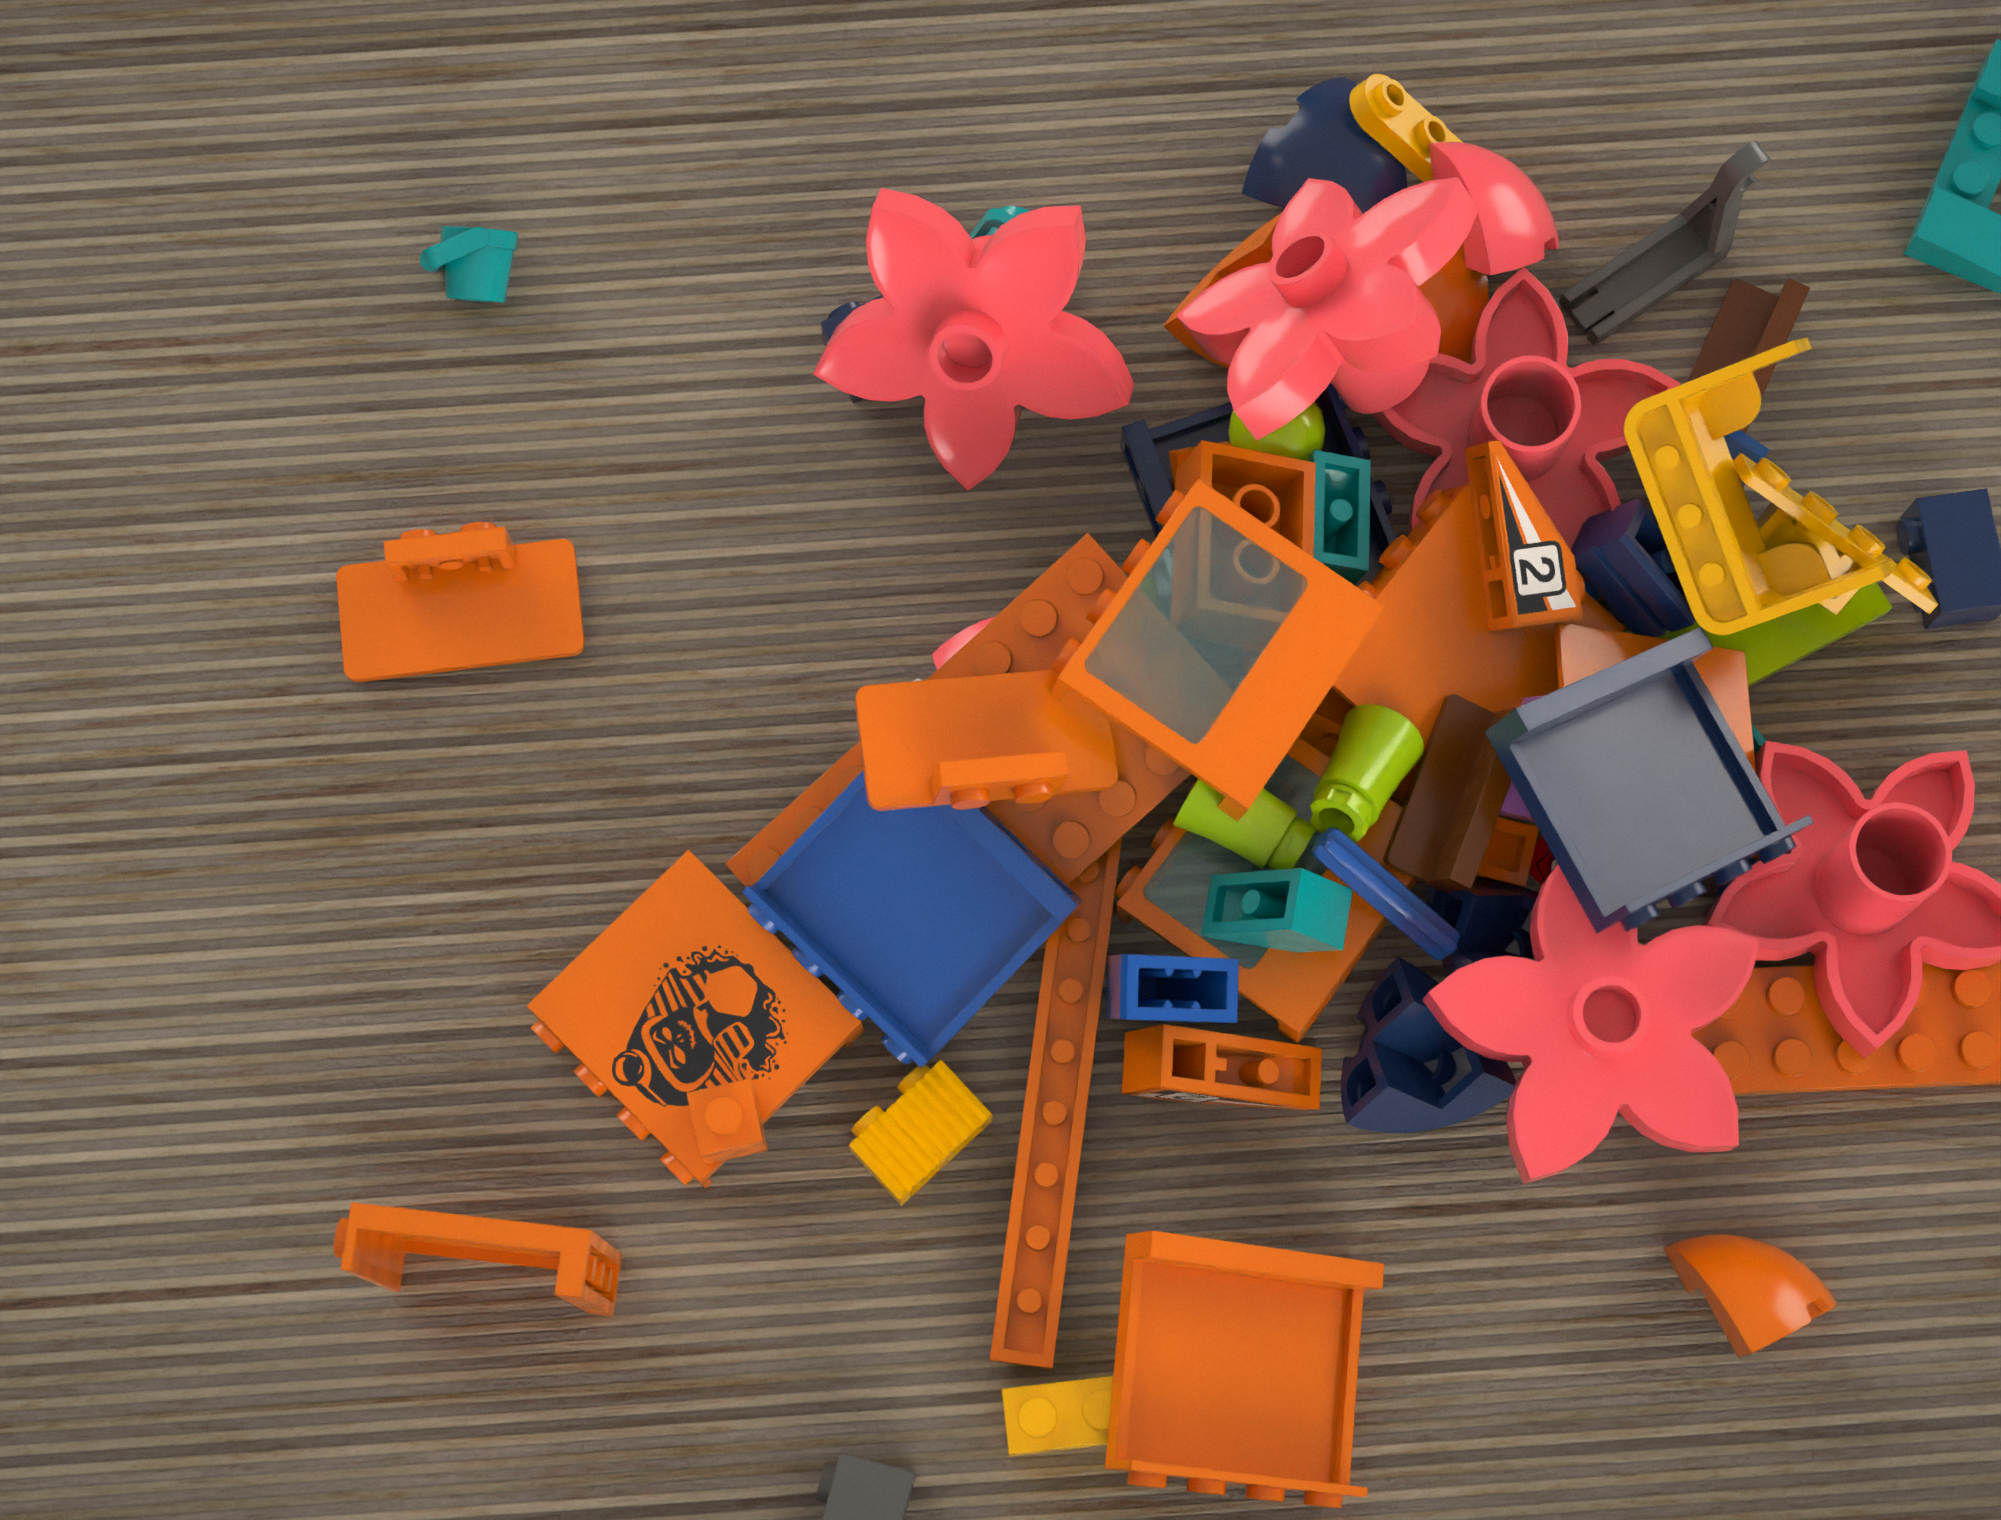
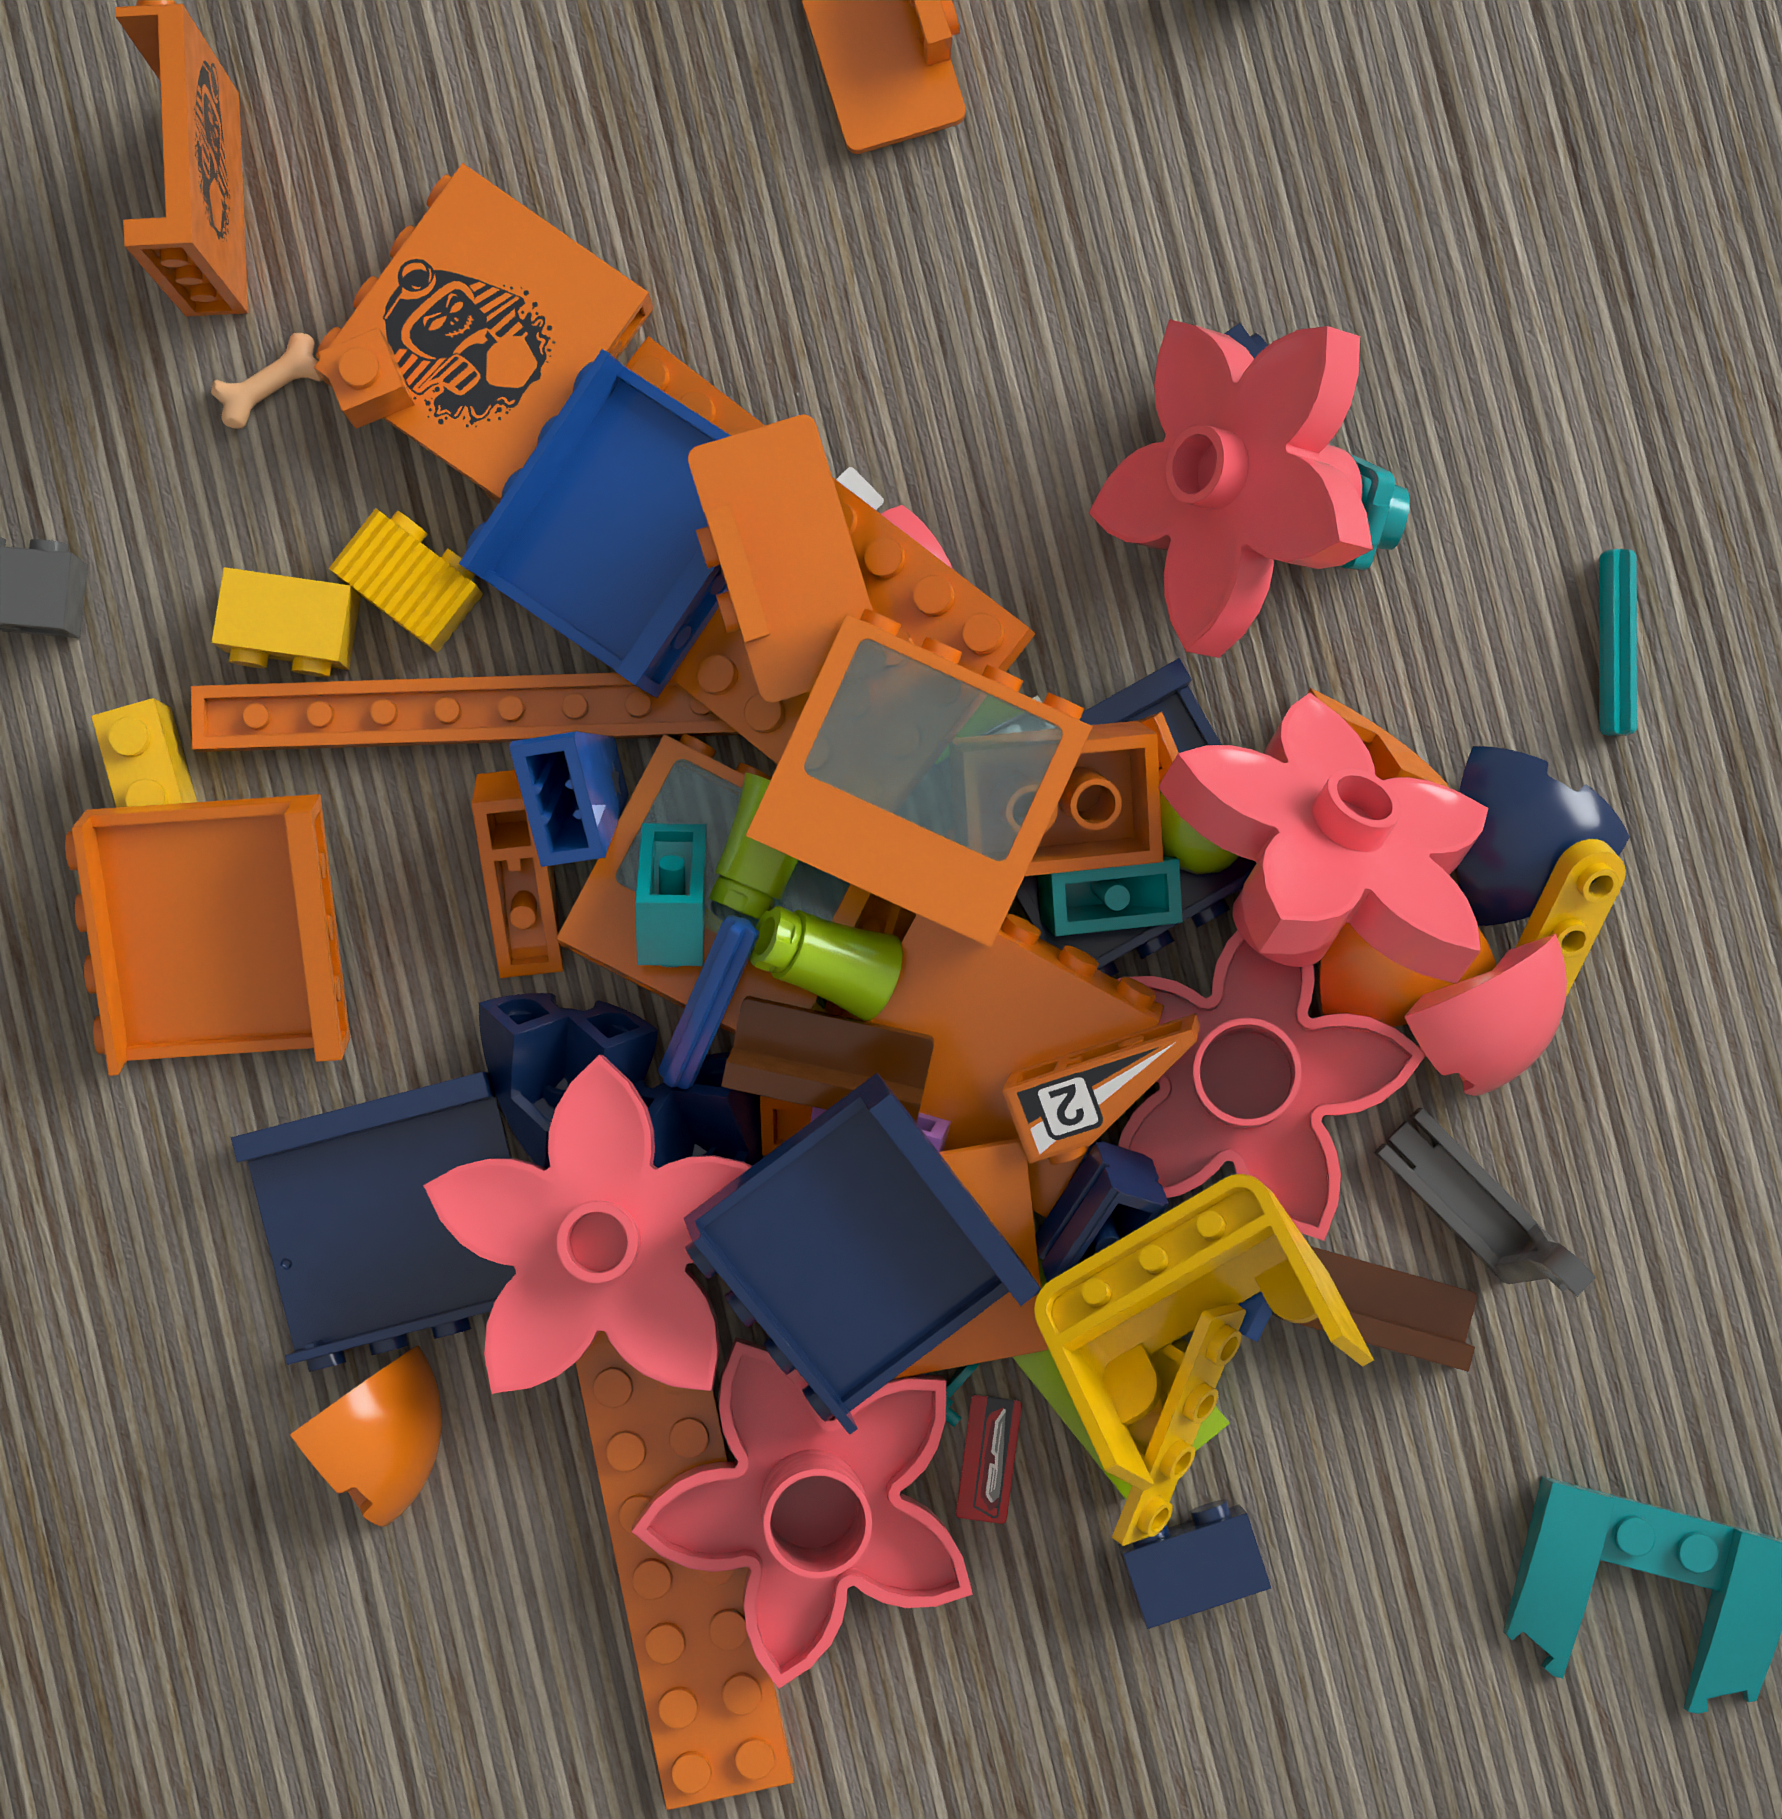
camera: 75 degrees right, 10 degrees up
(706, 1269) = (243, 396): none -> light nougat piece
(940, 1256) = (286, 621): none -> yellow brick
(1164, 60) = (1618, 642): none -> teal axle
(1545, 1269) = (355, 1227): none -> dark blue panel
(1834, 731) = (988, 1459): none -> sticker

